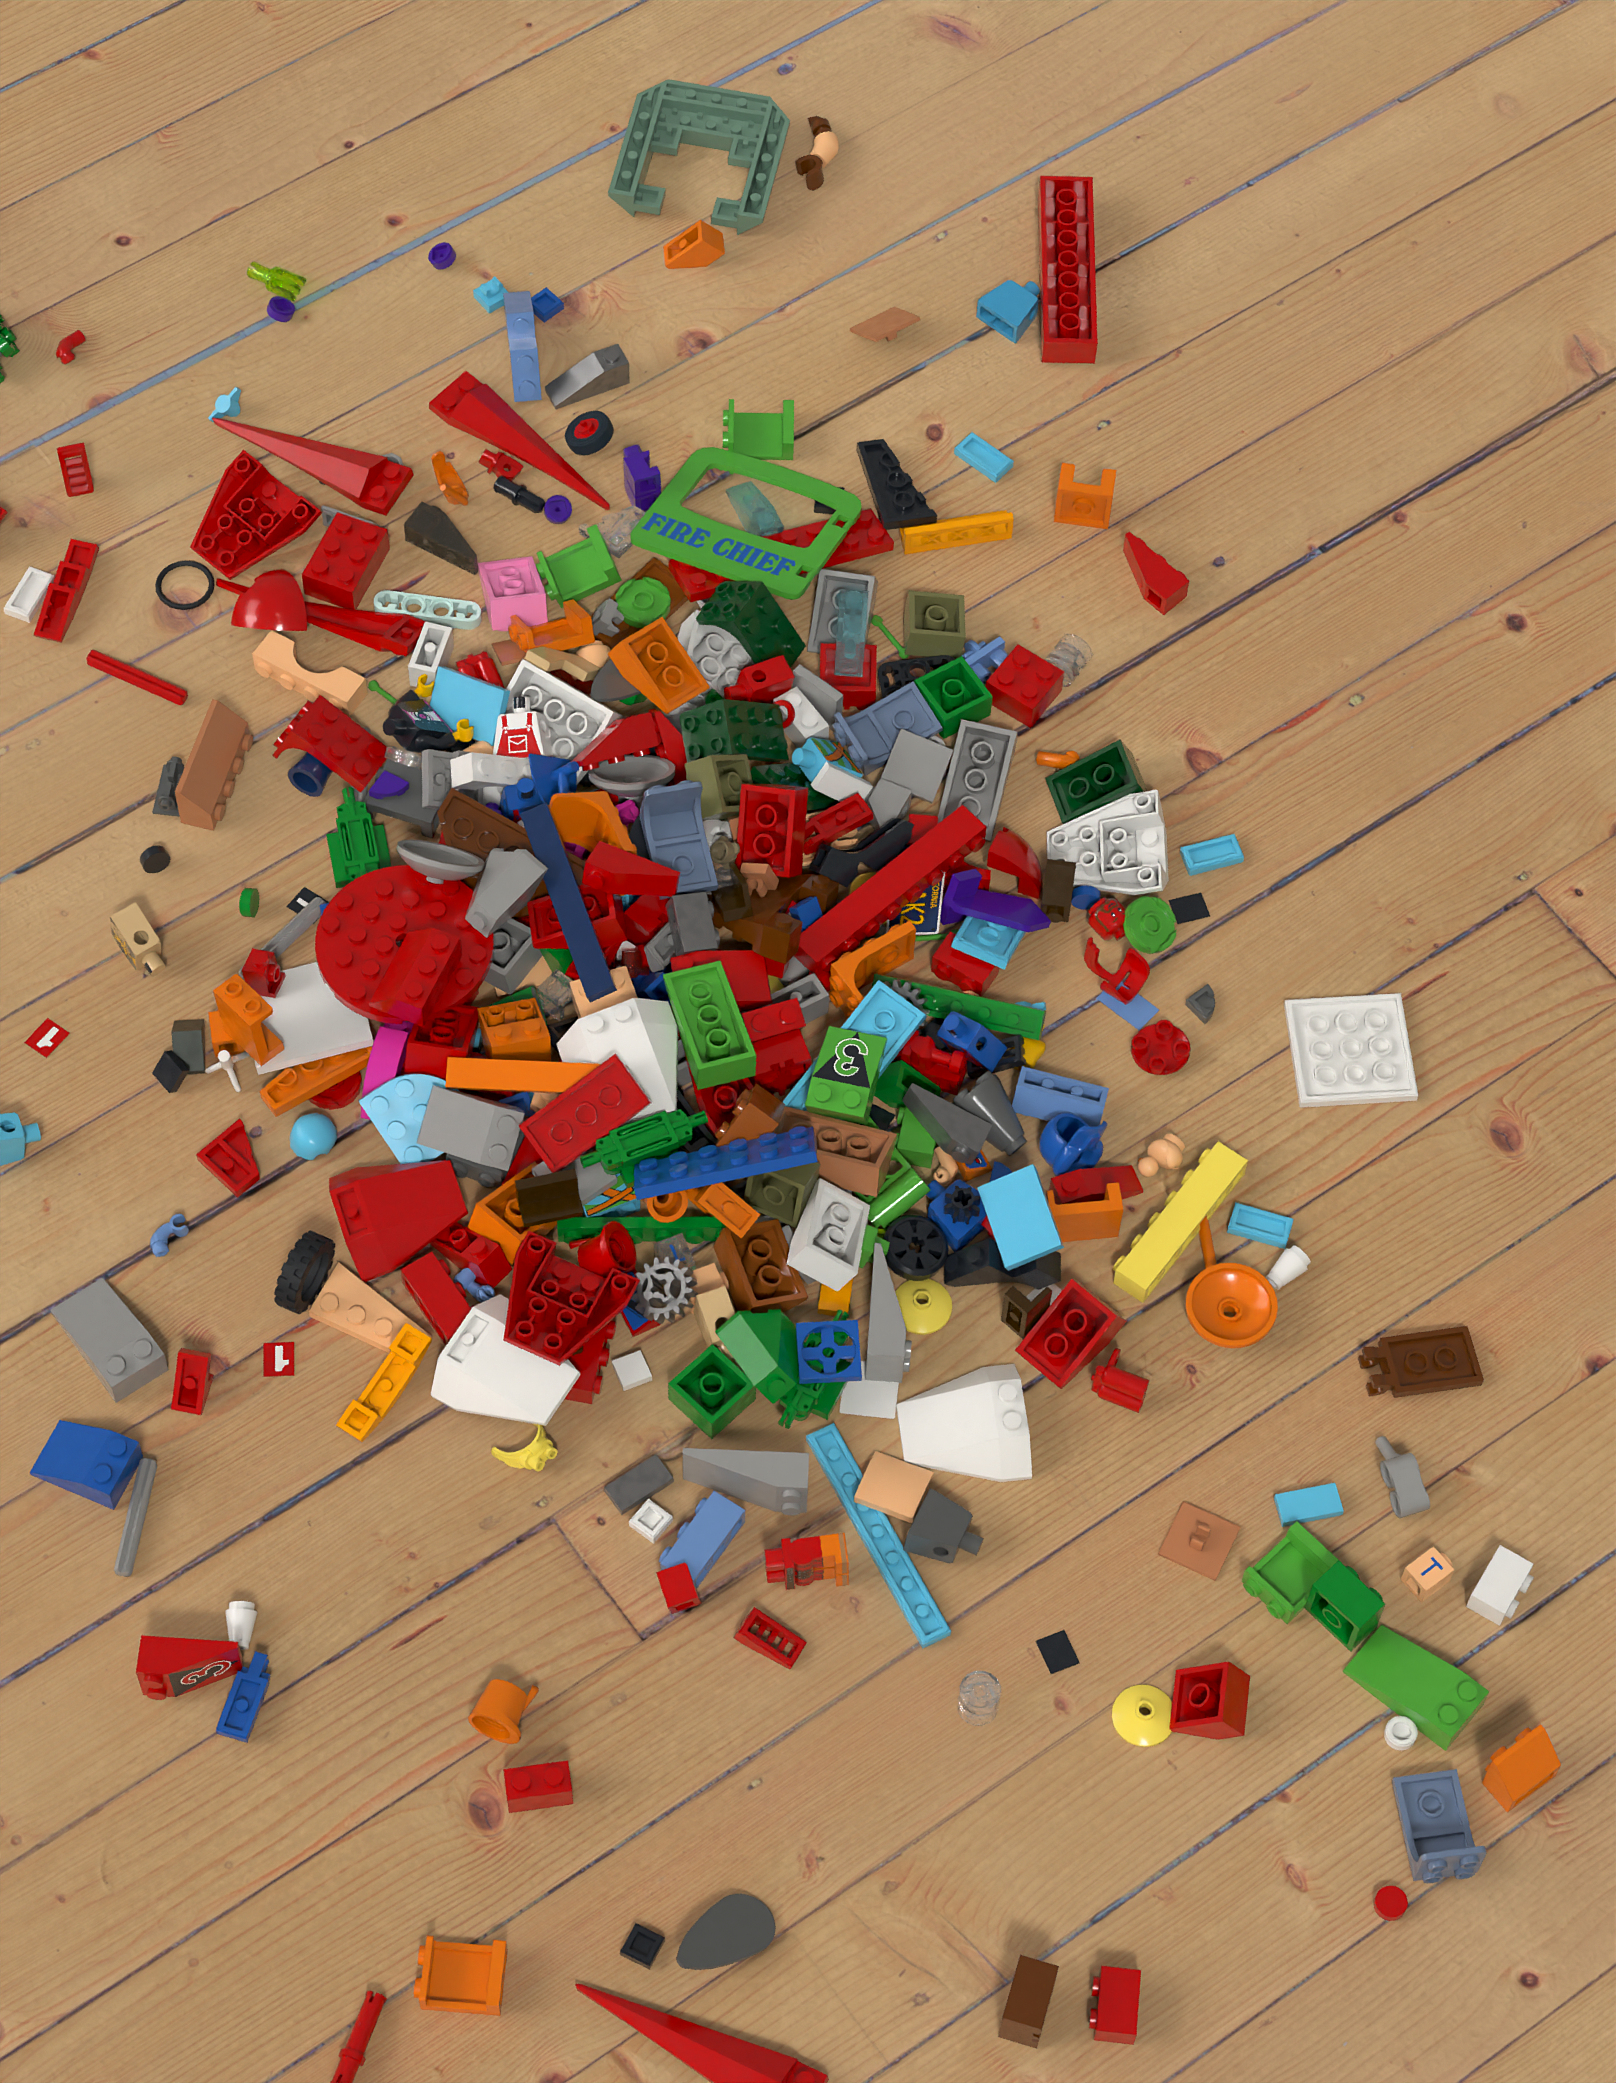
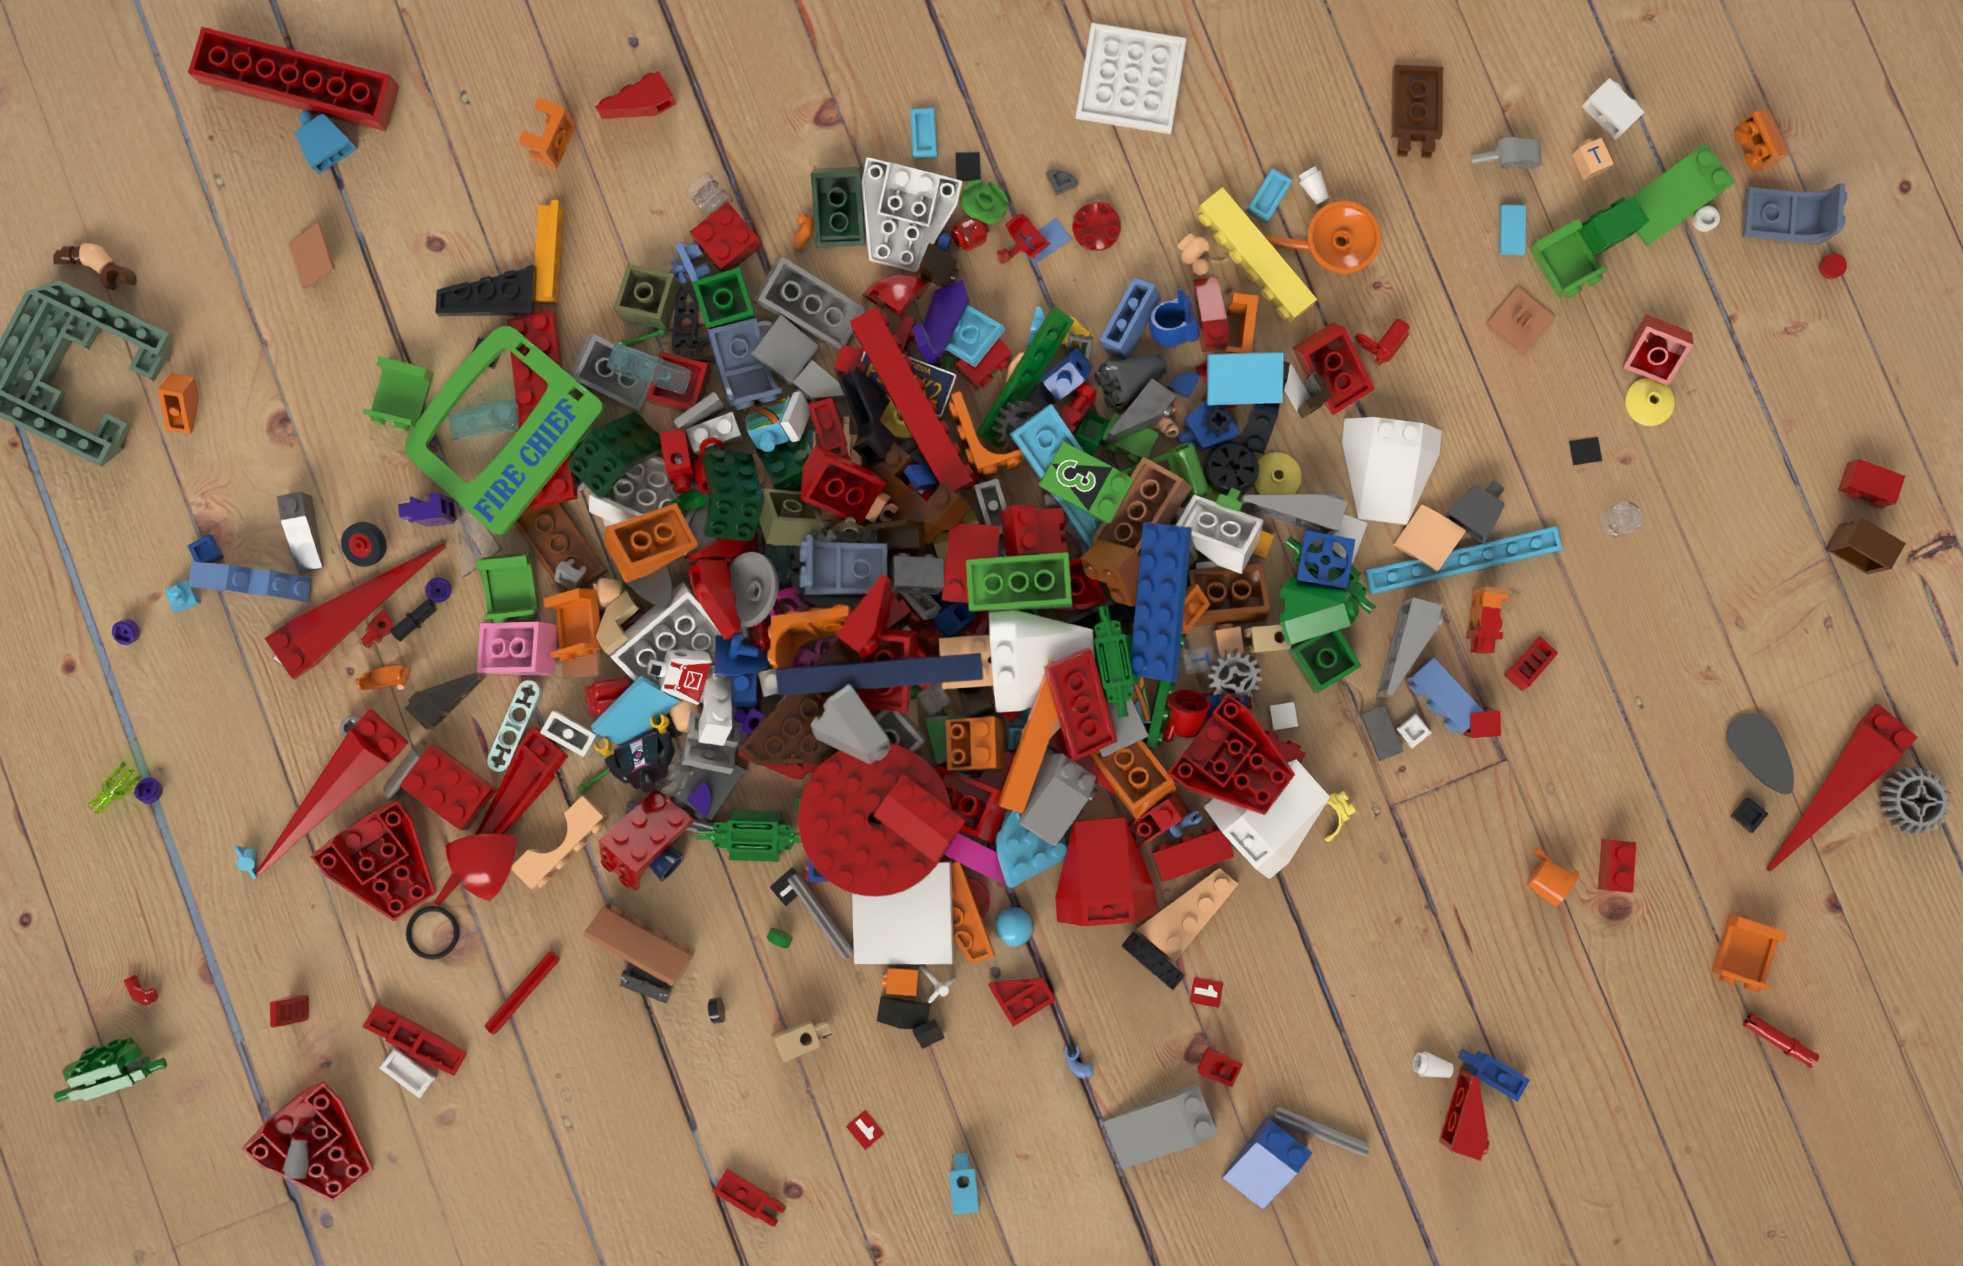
camera: 75 degrees left, 25 degrees up
(242, 1019) = (919, 965): orange panel -> none
(263, 973) = (860, 940): red brick -> none
(387, 1384) = (1256, 914): light orange slope -> none
(439, 860) = (812, 773): light grey dish -> none
(548, 1198) = (1142, 750): dark brown panel -> none
(643, 601) = (558, 538): bright green tile -> none
(983, 457) = (475, 209): medium azure tile -> none

